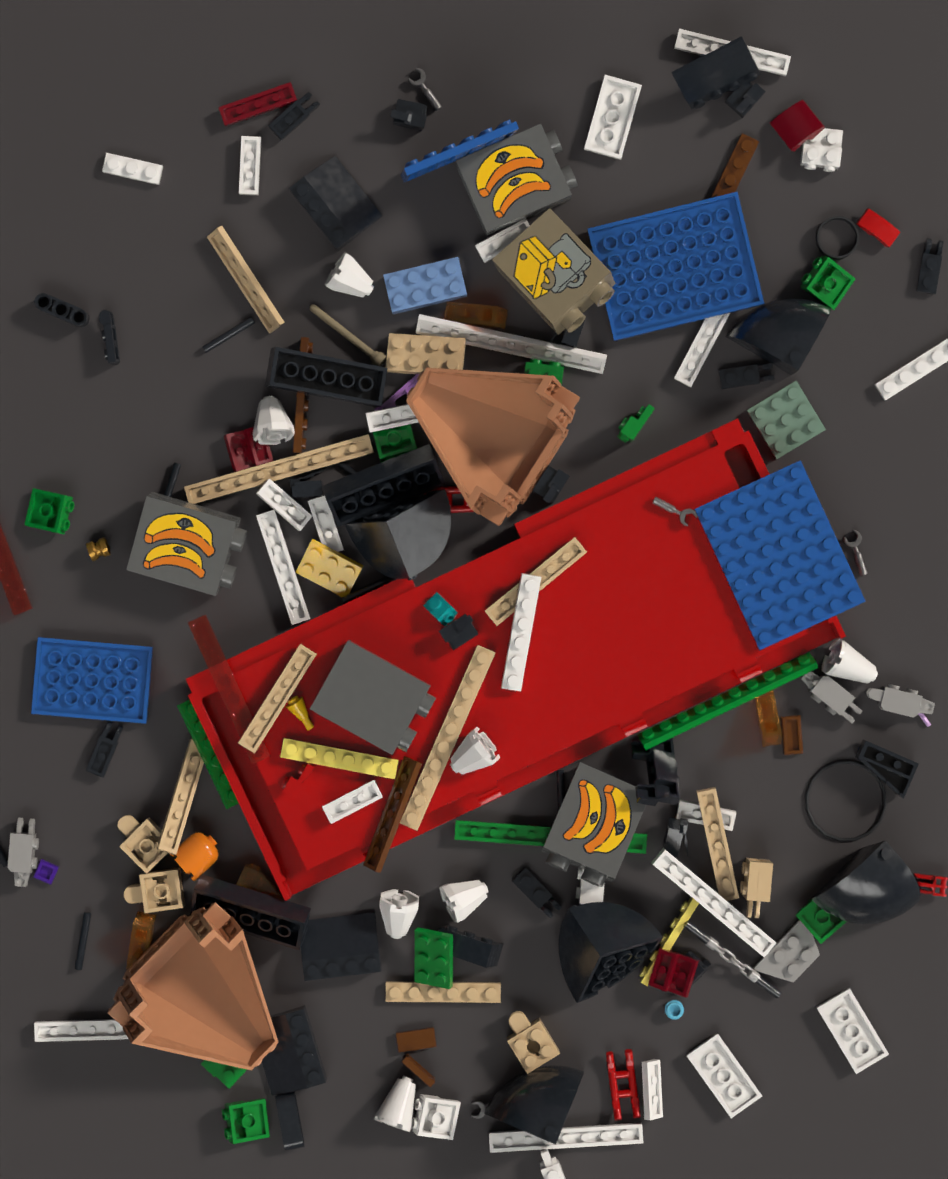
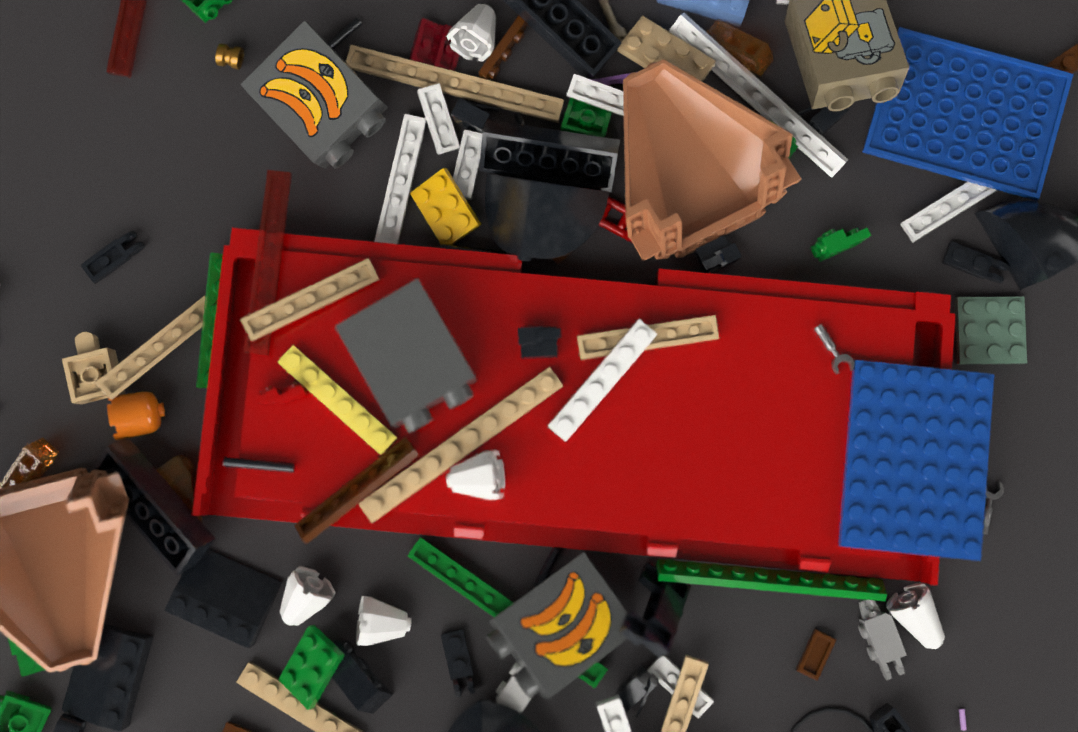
camera: 25 degrees right, 5 degrees down
(92, 680) = (143, 180): blue plate -> none
(157, 890) = (75, 428): tan brick -> none
(298, 708) = (326, 324): yellow cone -> none
(311, 837) = (259, 464): none -> black bar
(352, 801) = (323, 452): white plate -> none
(440, 609) = (533, 308): teal bracket -> none
(768, 719) = (801, 624): clear orange slope -> none
(900, 702) = (949, 687): light grey hinge -> none

